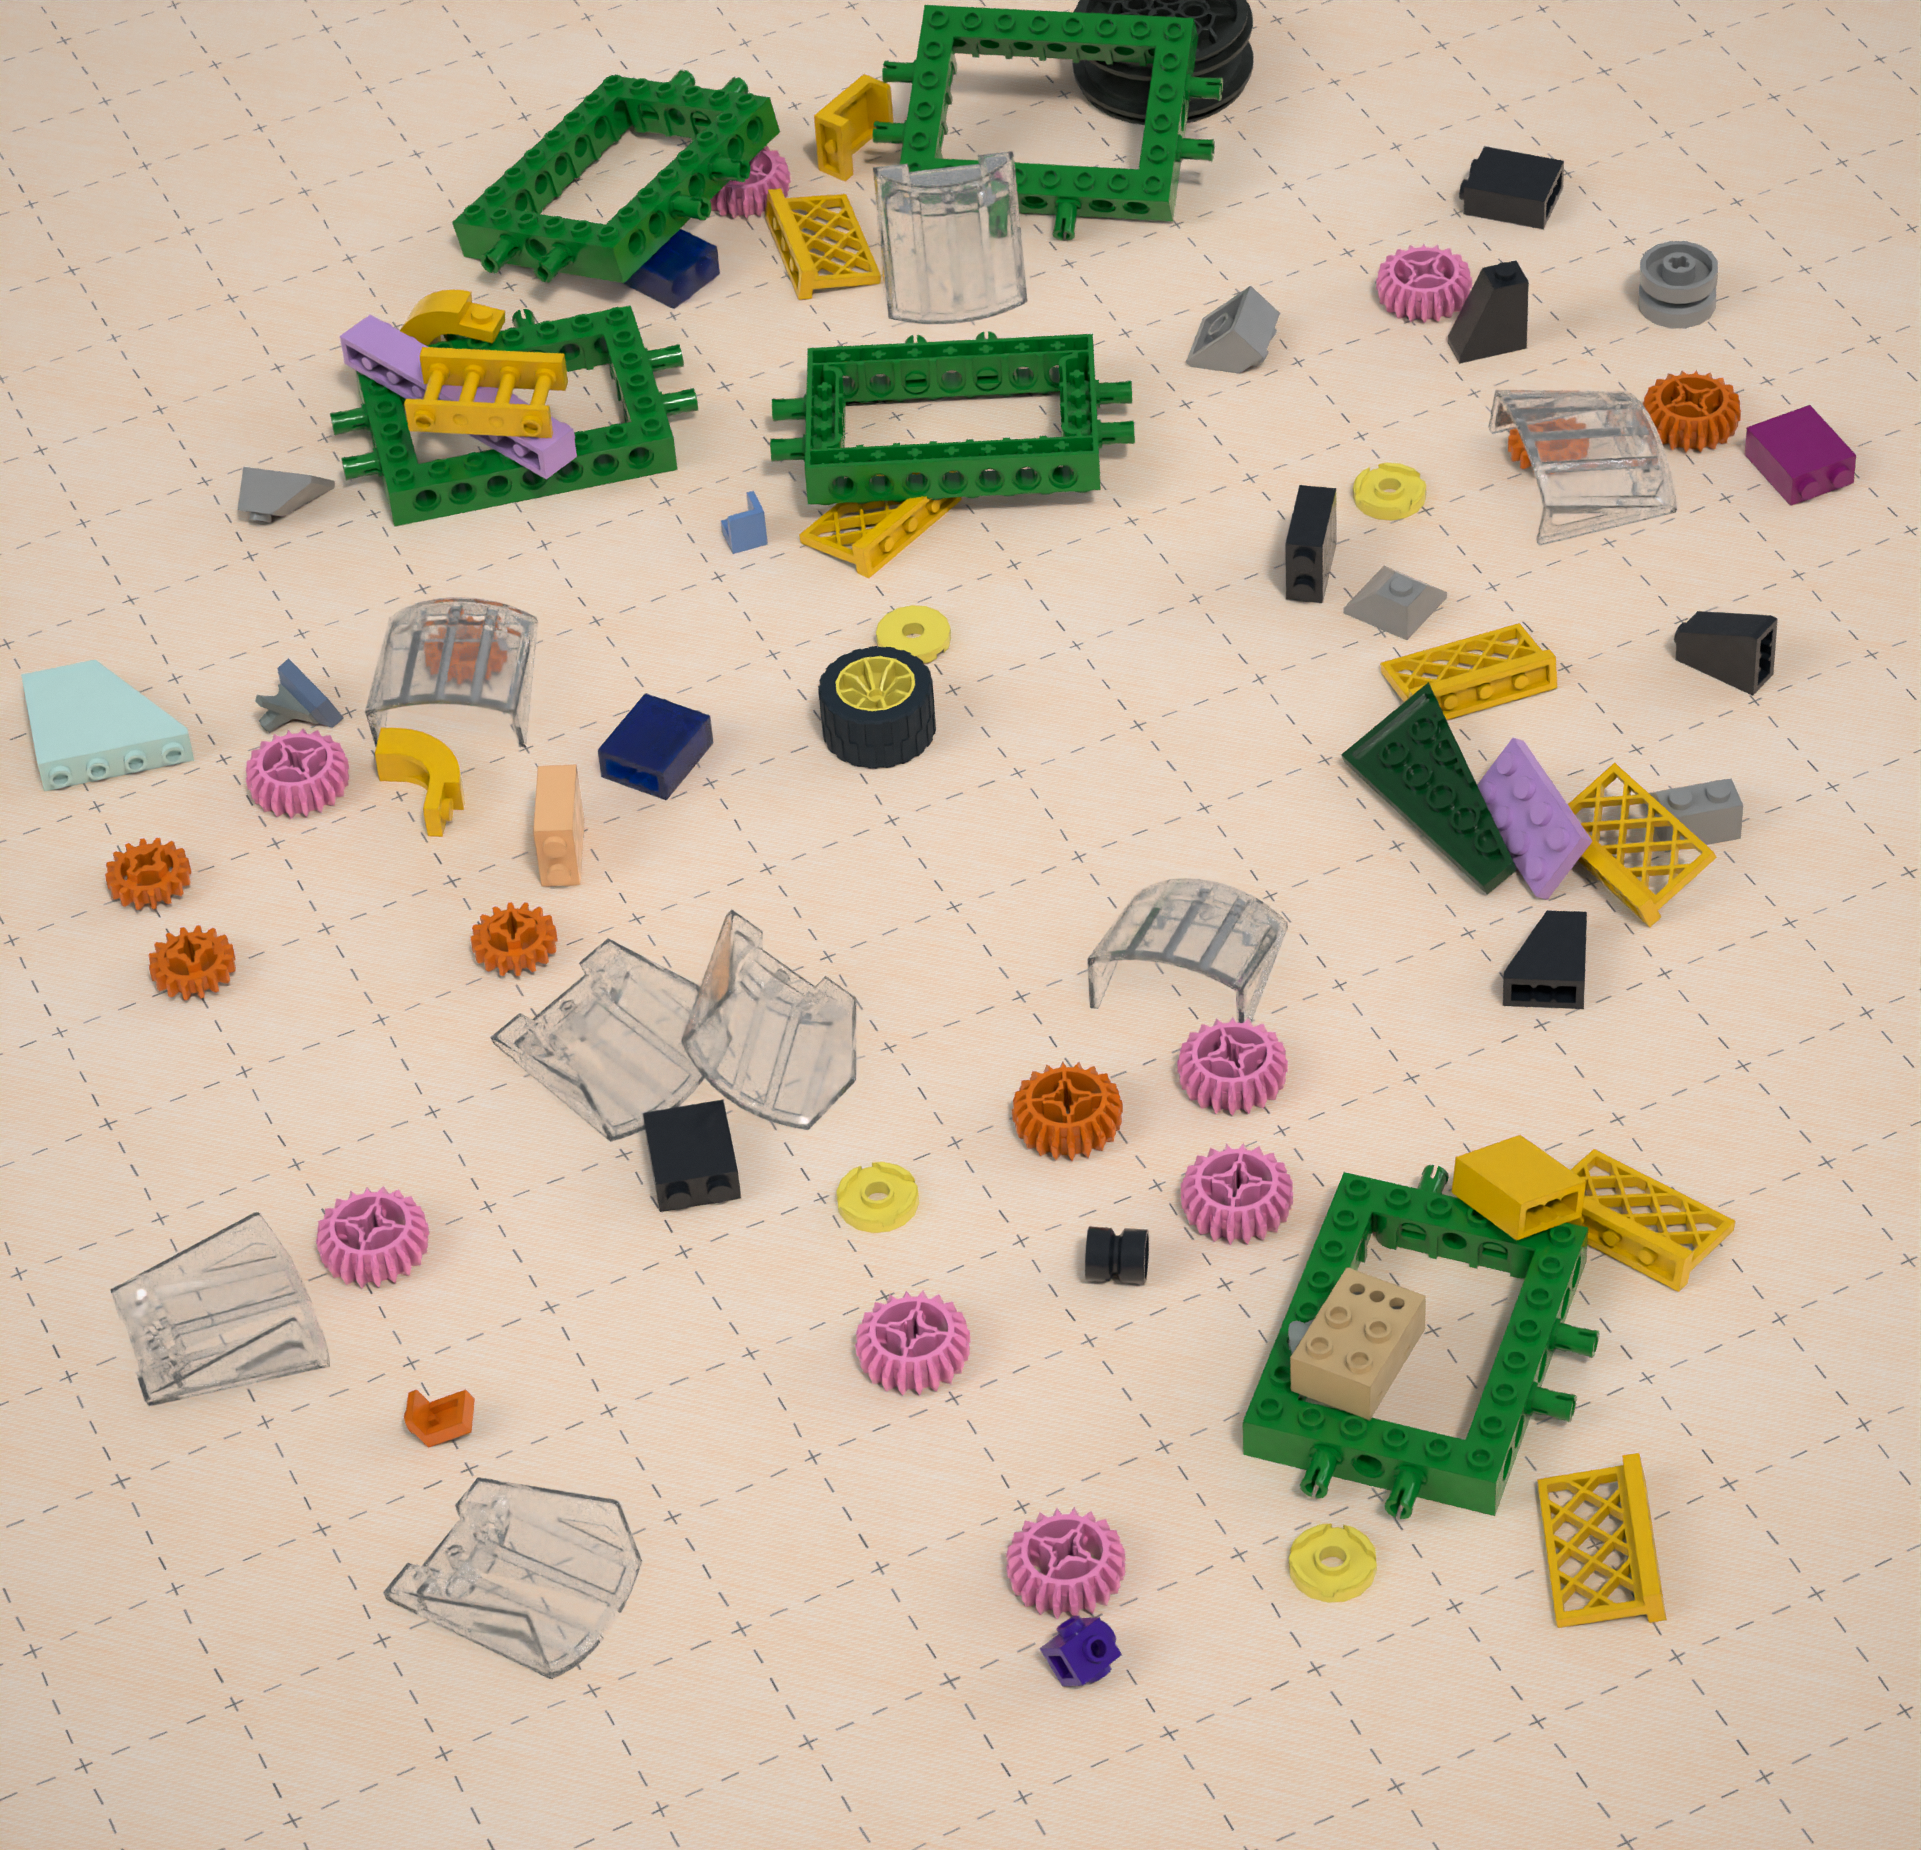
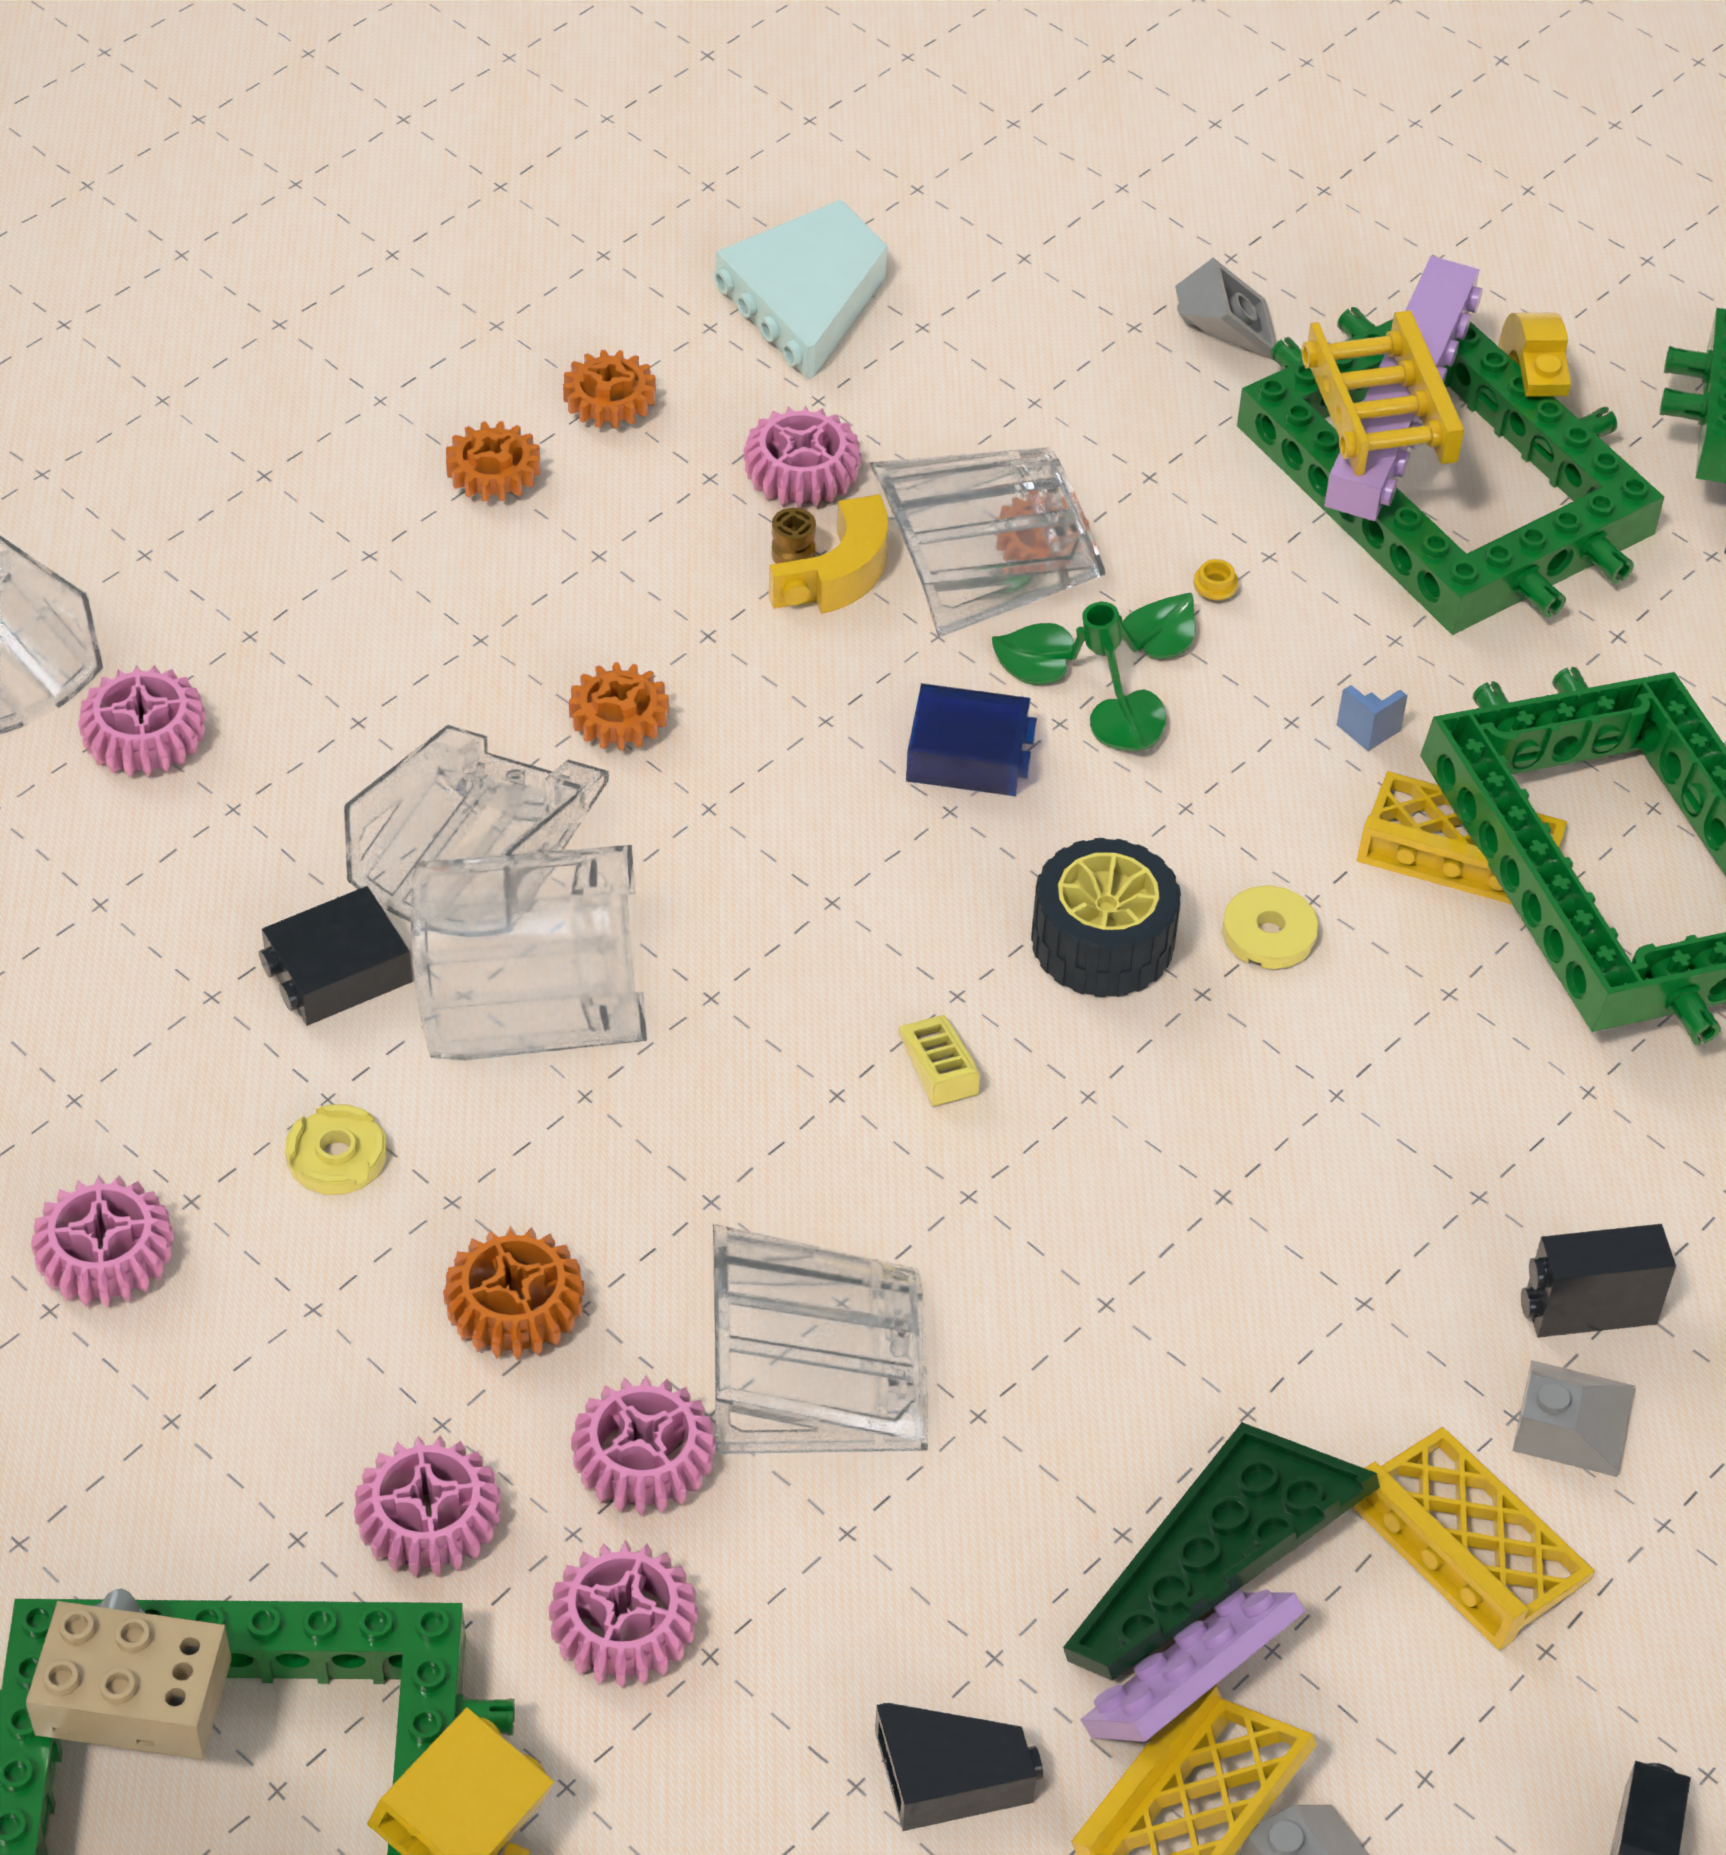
camera: 65 degrees right, 5 degrees up
(296, 700) = (915, 427): piece -> none
(387, 798) = (793, 535): none -> pearl gold wheel
(558, 825) = (786, 685): light nougat brick -> none
(560, 574) = (1216, 580): none -> yellow plate
(593, 617) = (1161, 629): none -> green plant
(965, 837) = (946, 1086): none -> light yellow slope
(1117, 1255) = (285, 1404): black wheel -> none
(1368, 1095) = (639, 1638): none -> bright pink gear

